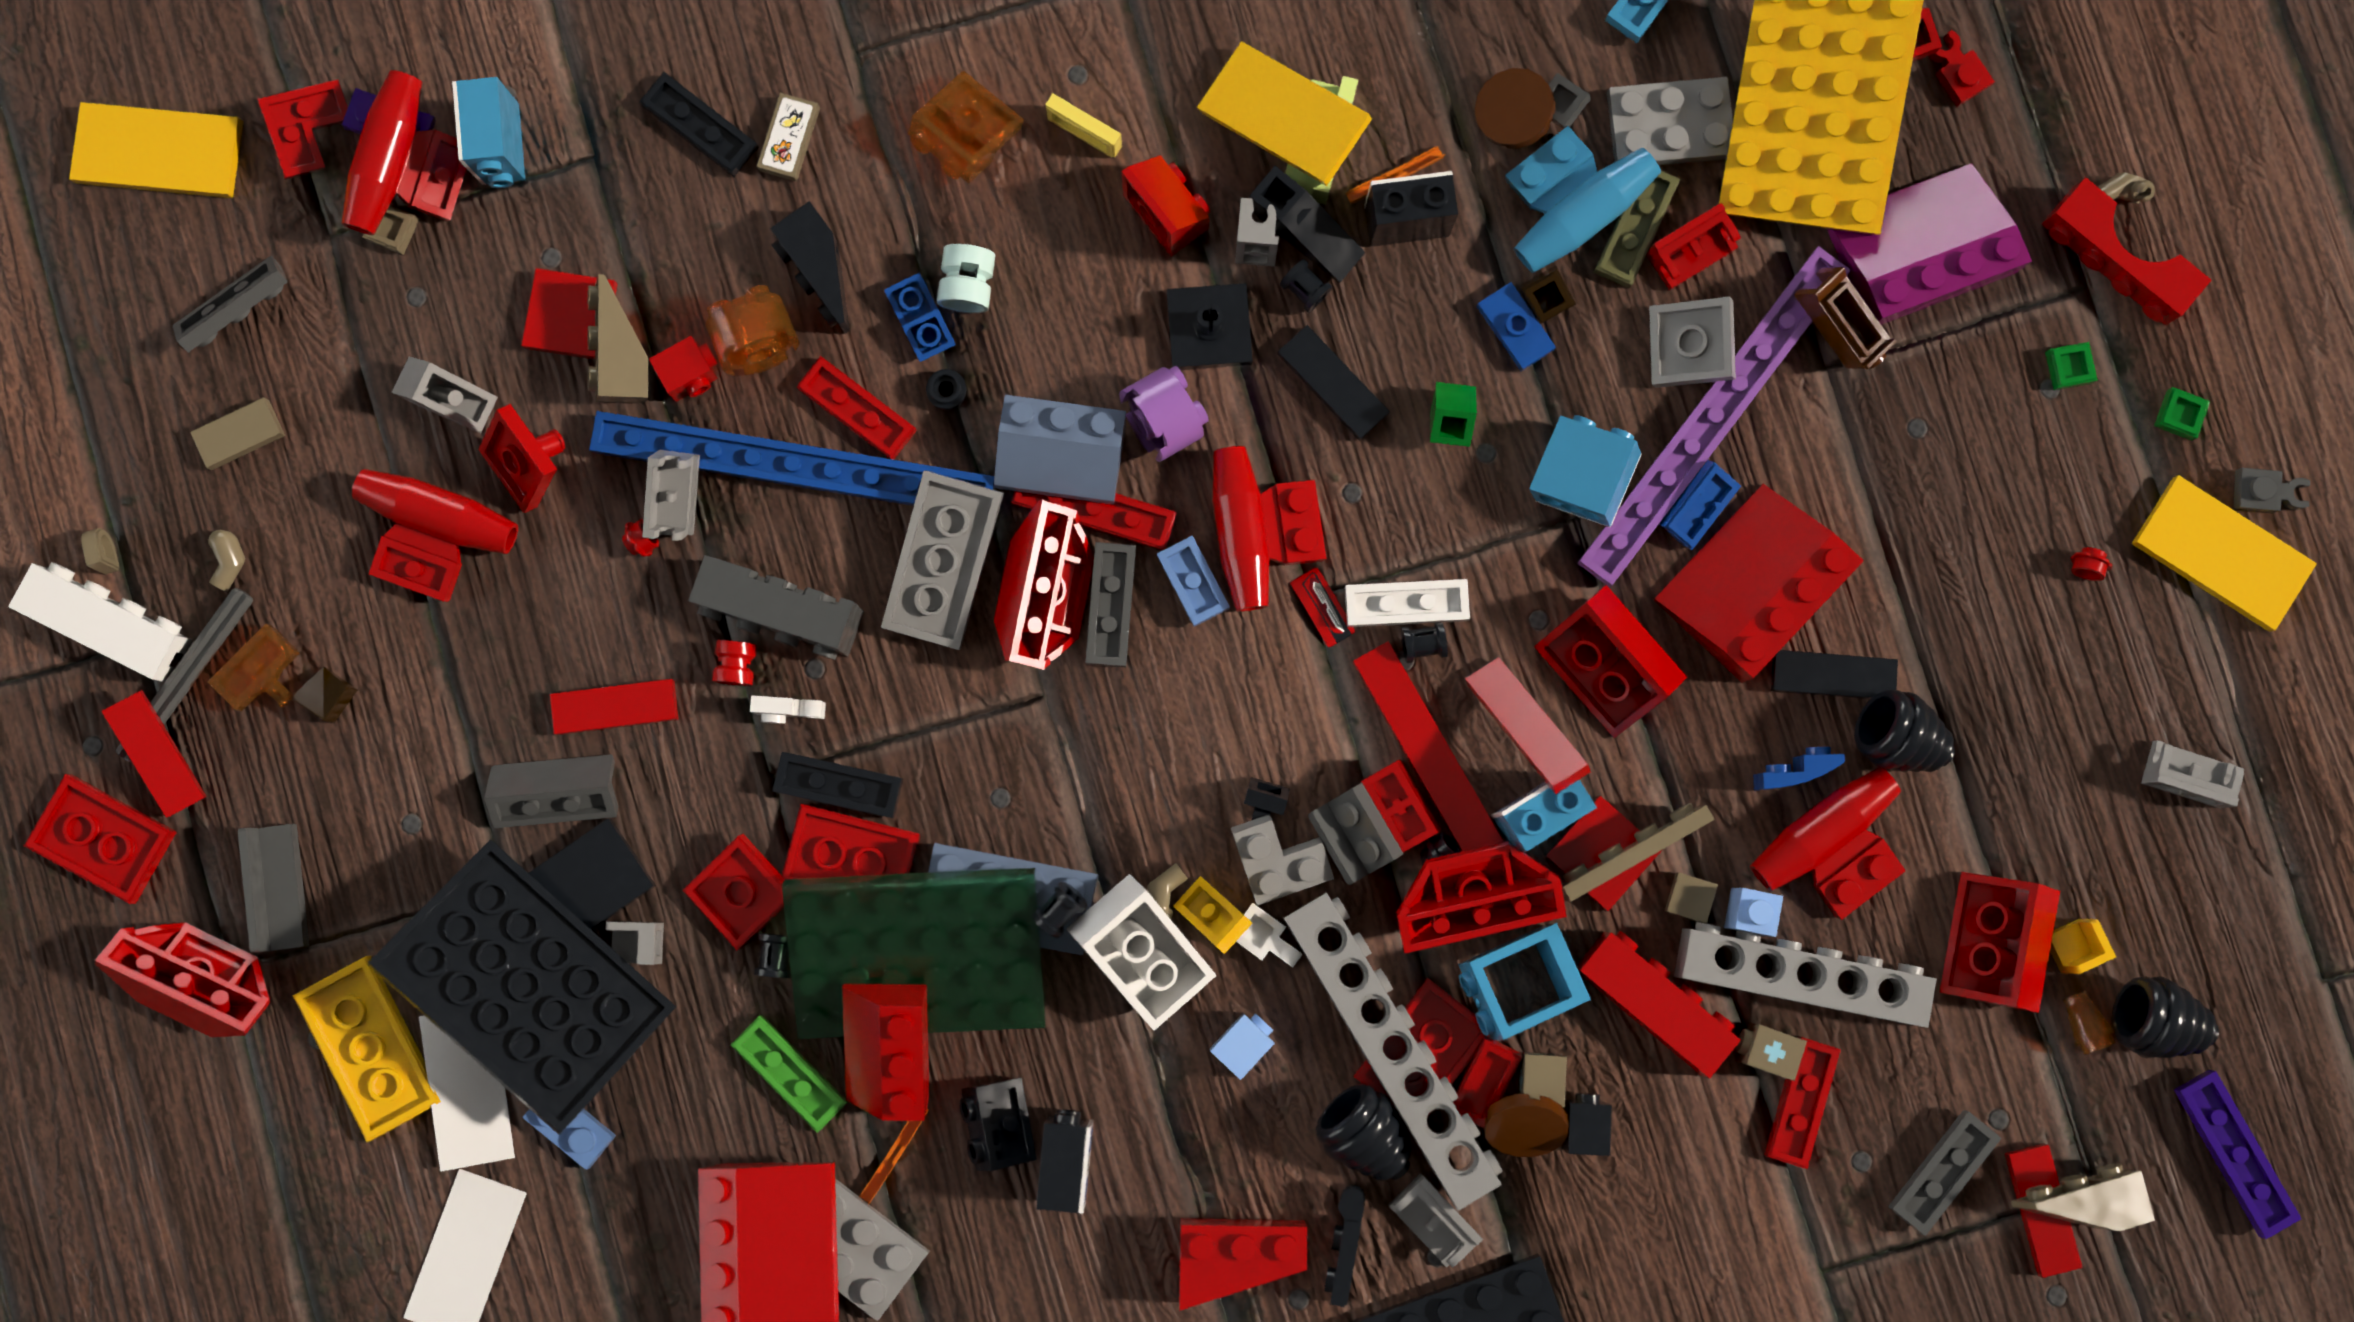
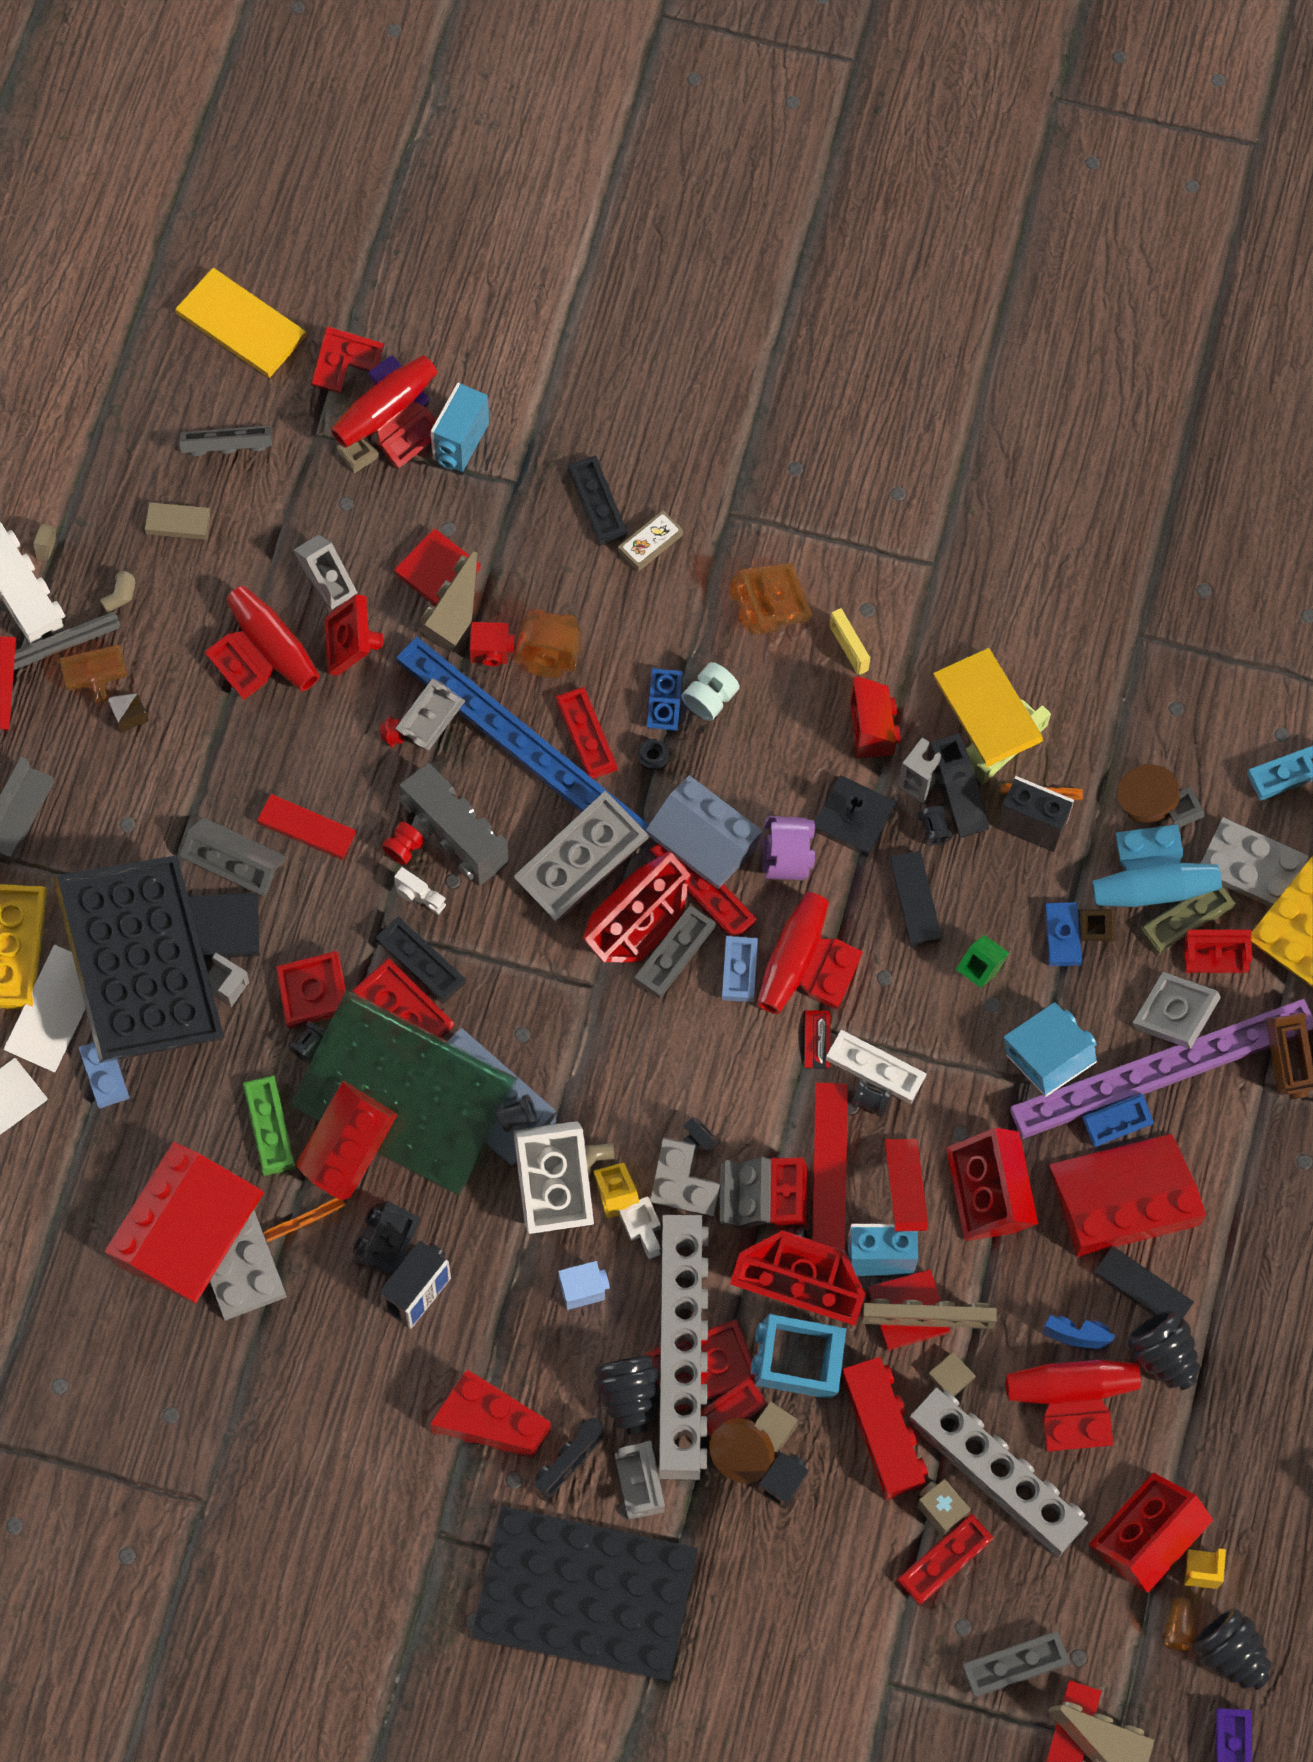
camera: 30 degrees right, 15 degrees down
(816, 254) = (622, 620): black slope -> none
(1753, 911) = (989, 1405): light blue brick -> none

